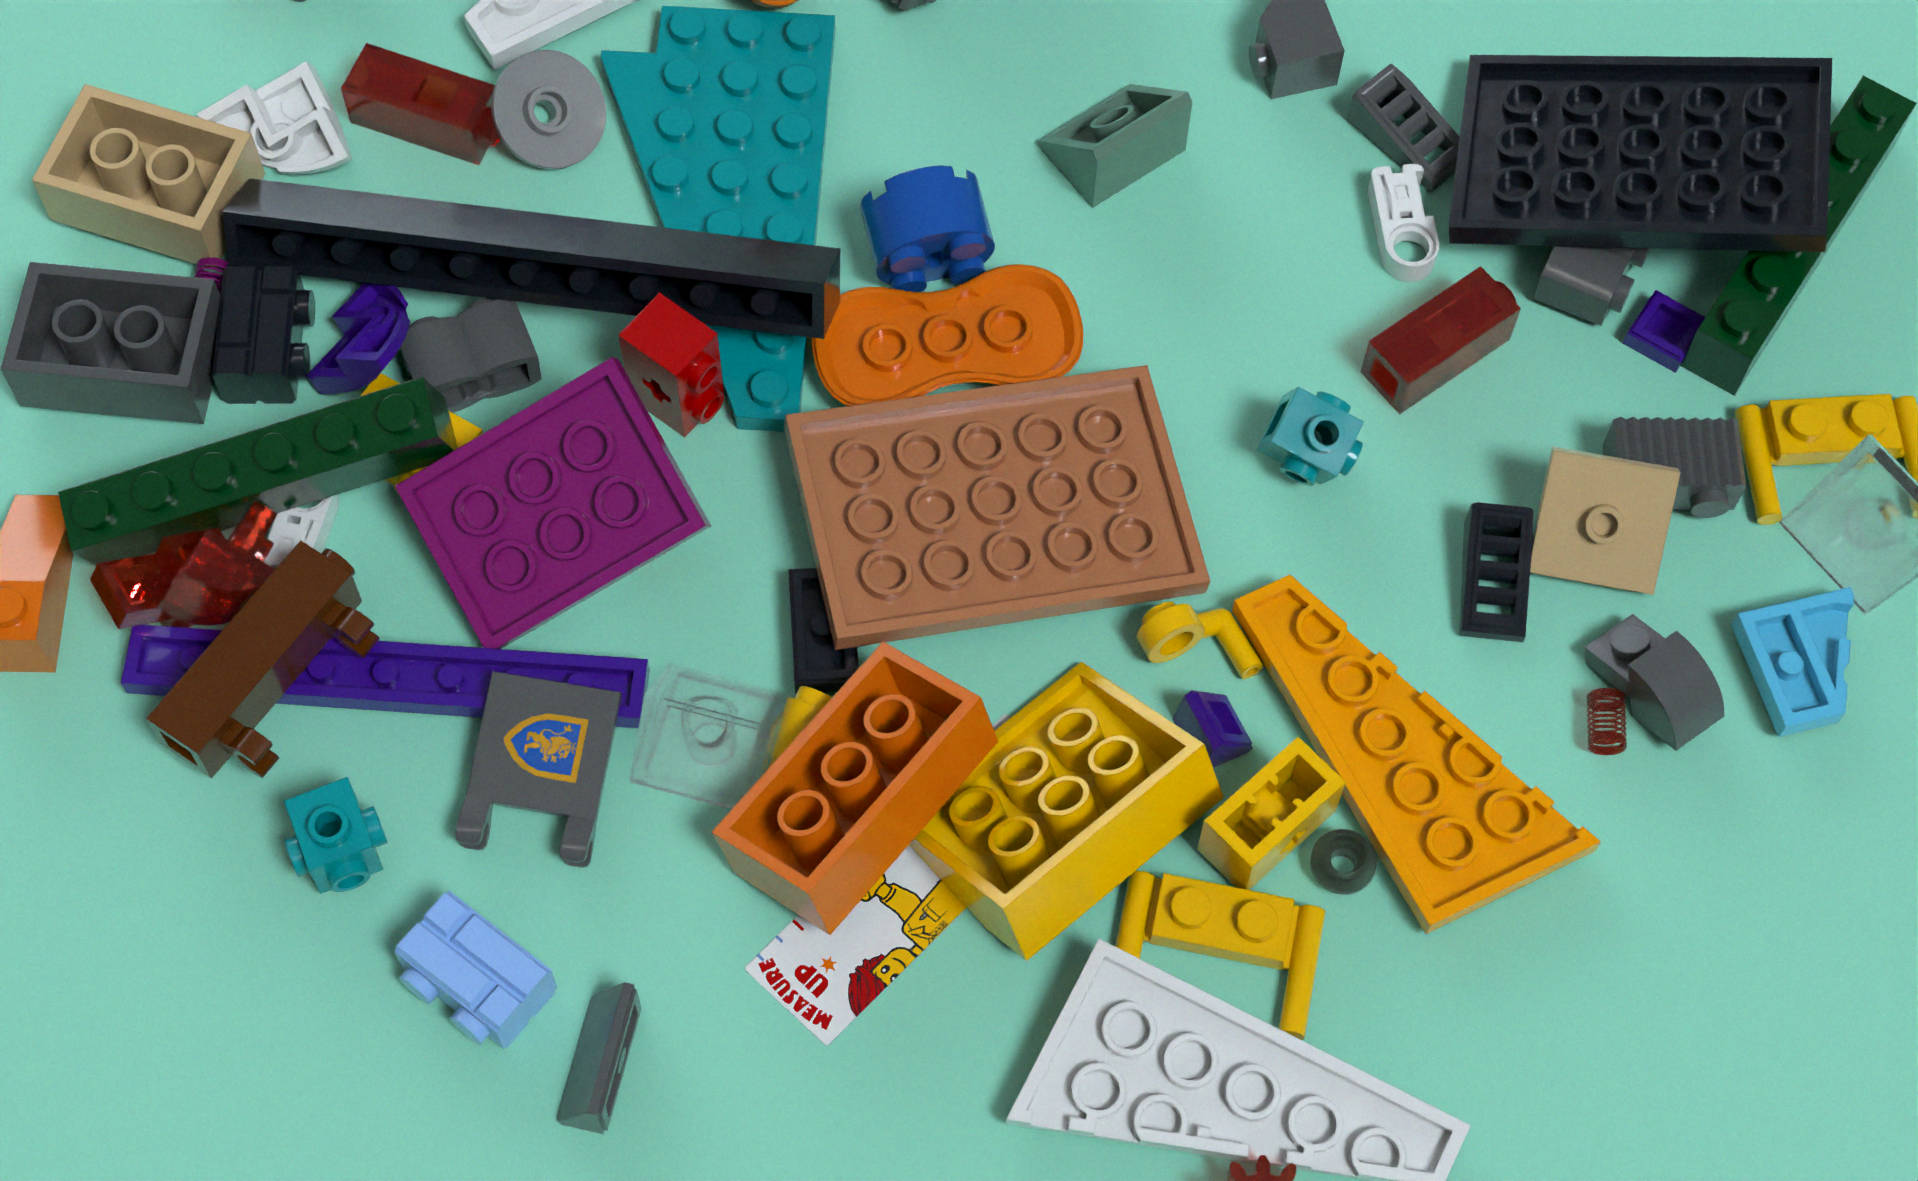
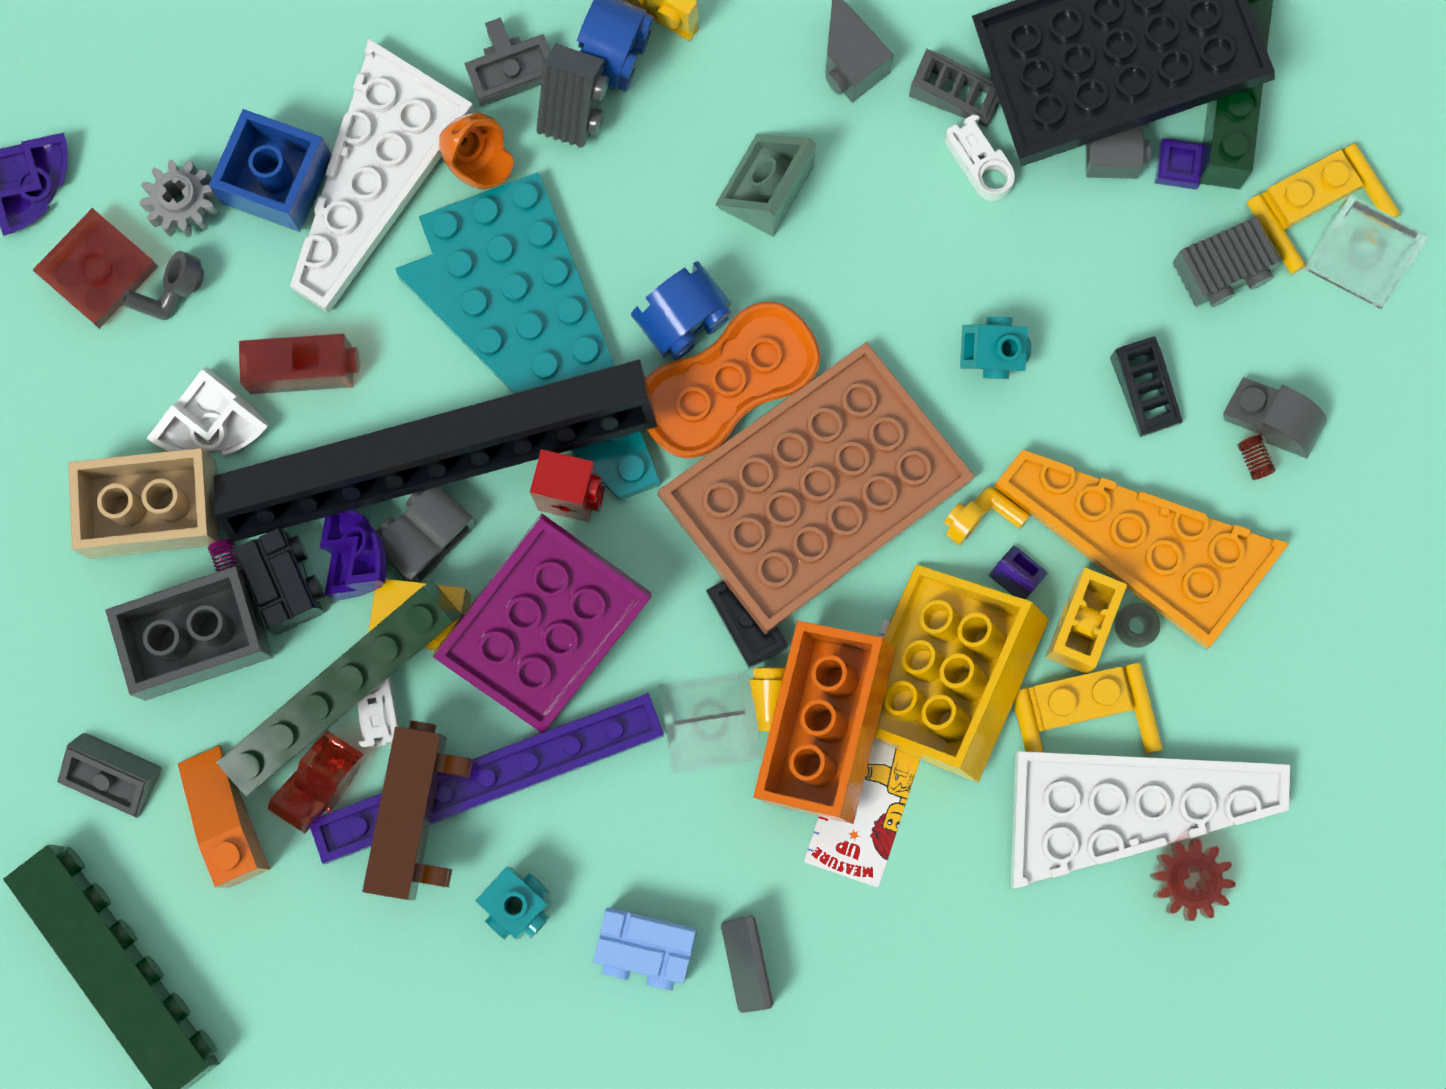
camera: 20 degrees left, 15 degrees up
(222, 572) = (355, 768): clear red brick -> none
(541, 752) = (613, 786): dark grey flag -> none
(573, 104) = (401, 327): light grey dish -> none
(1440, 339) = (1044, 237): clear red brick -> none
(1603, 520) = (1202, 323): tan plate -> none
(1799, 658) = (1357, 361): medium azure wing -> none

